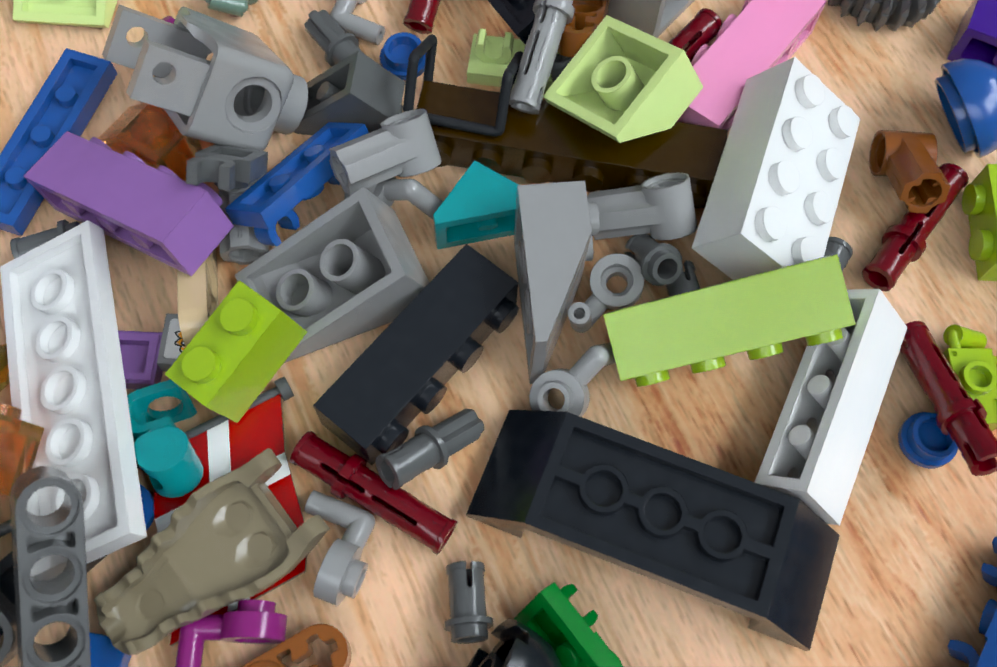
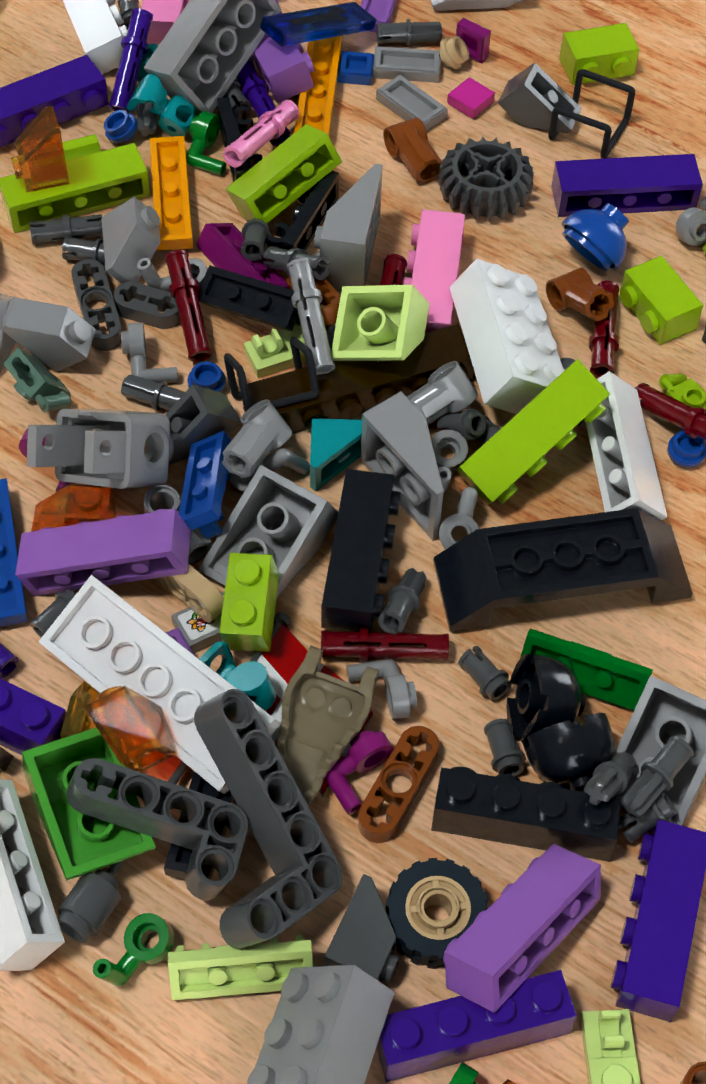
camera: 30 degrees left, 10 degrees down
(226, 166) = (165, 494): dark grey plate -> none

